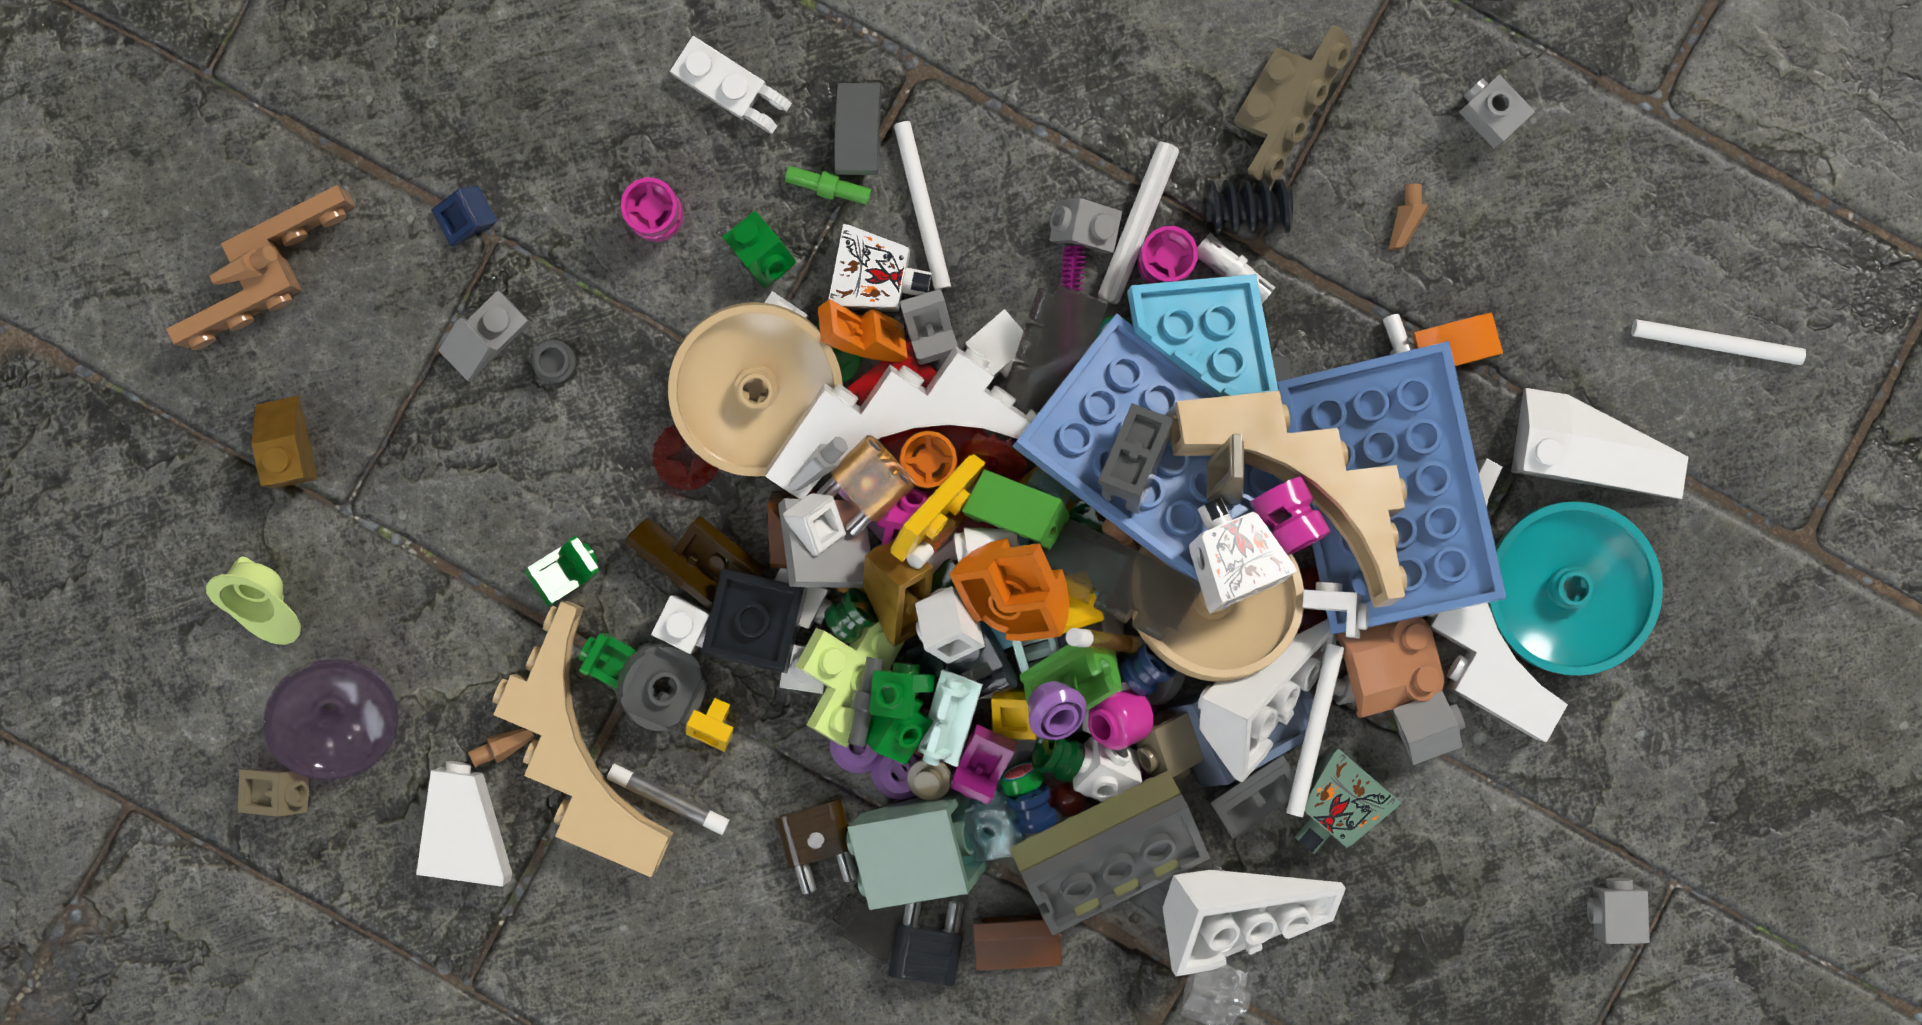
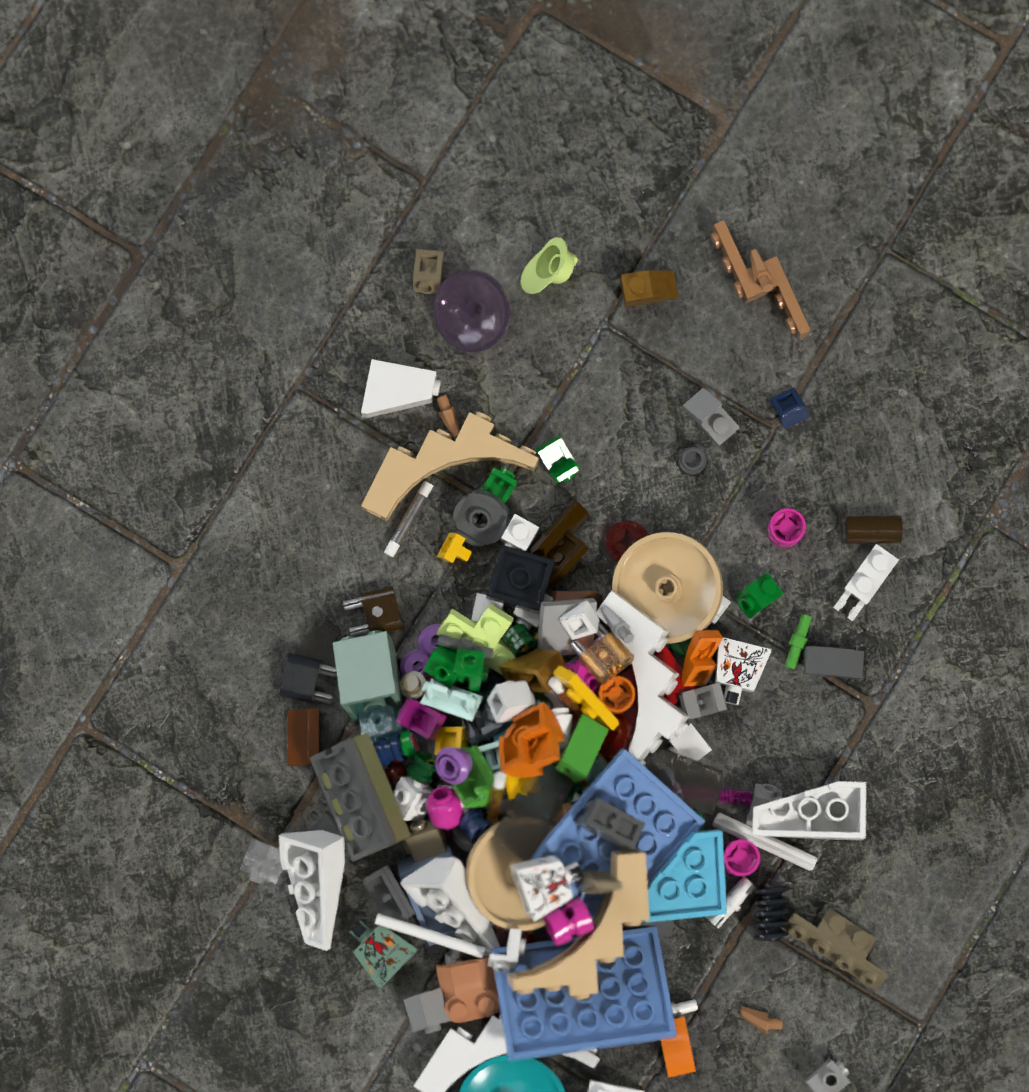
camera: 95 degrees right, 5 degrees down
(648, 76) = (873, 529): none -> dark brown brick
(922, 205) = (780, 702): white bar -> none
(1093, 135) = (819, 813): none -> white wedge

